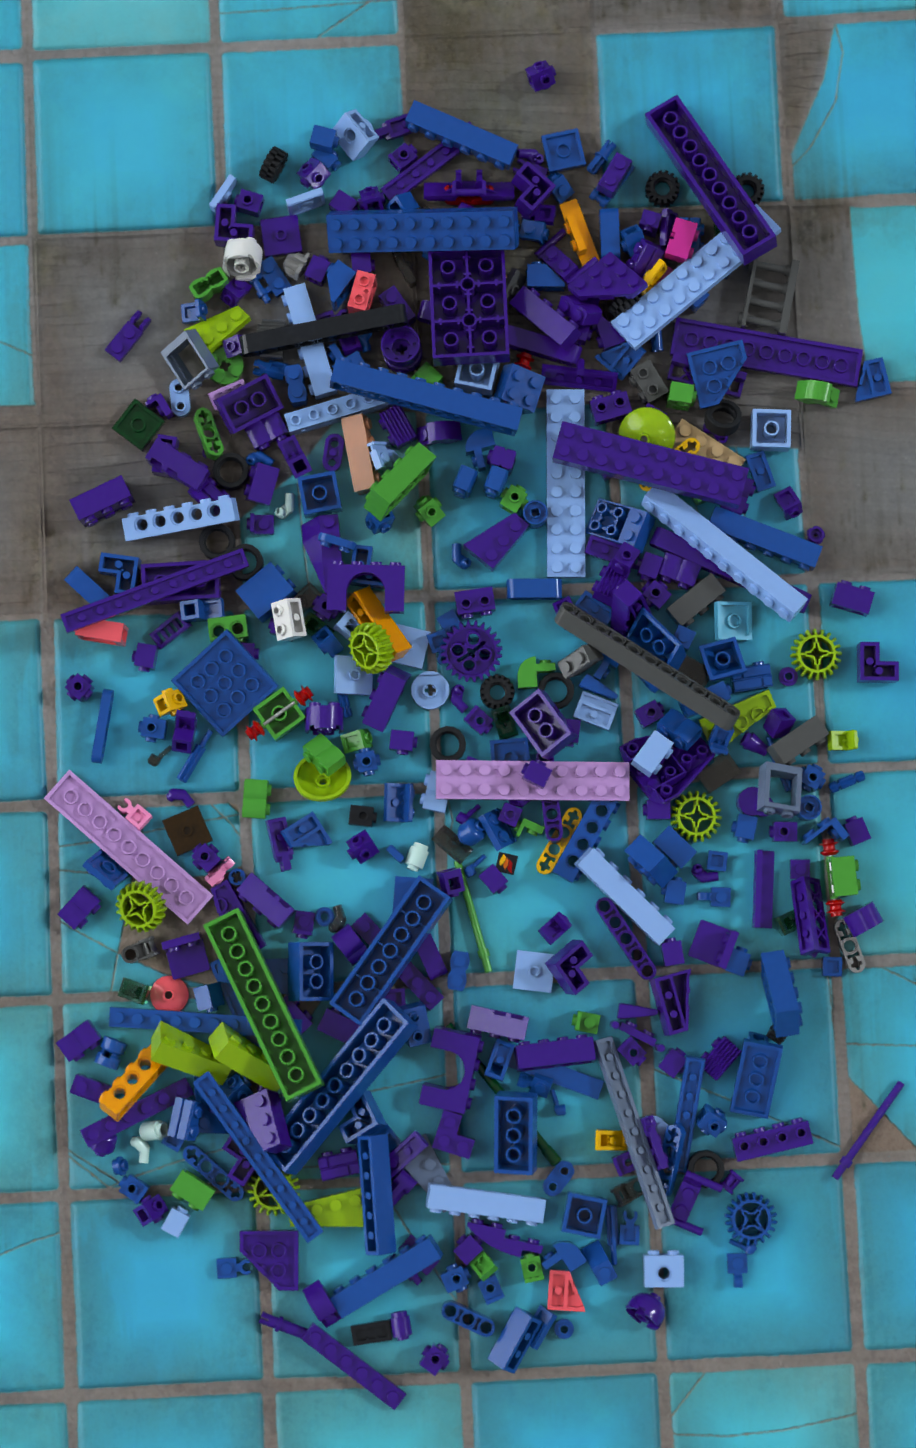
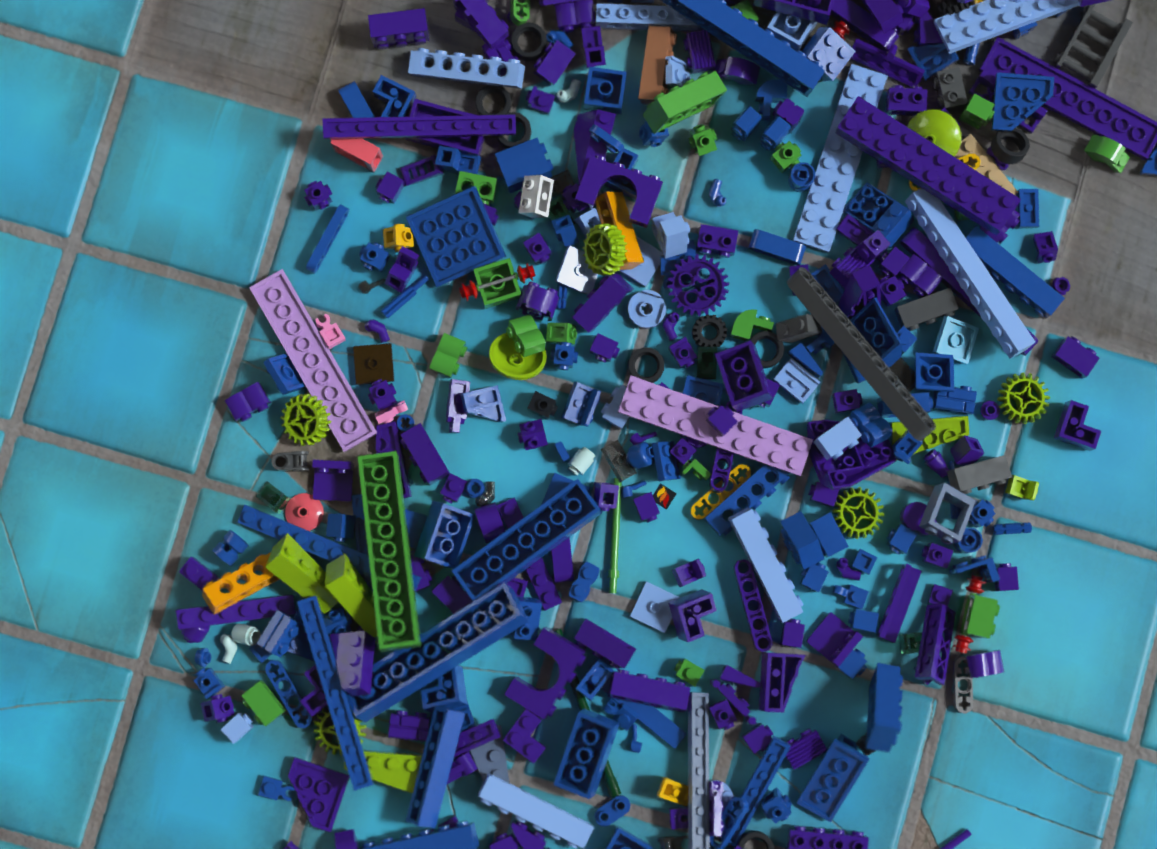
camera: 15 degrees right, 0 degrees up
(79, 1040) = (205, 526): dark purple brick -> none
(307, 668) = (537, 249): none -> dark purple brick
(333, 453) = (629, 56): dark purple plate -> none
(429, 611) = (671, 234): none -> light blue brick
(497, 541) = (757, 190): dark purple wedge -> none
(718, 773) = (893, 479): clear smoke brick -> none
(734, 917) = (863, 620): none -> blue brick
(770, 430) = (1051, 172): light blue brick -> none
(832, 966) = (940, 698): blue tile -> none

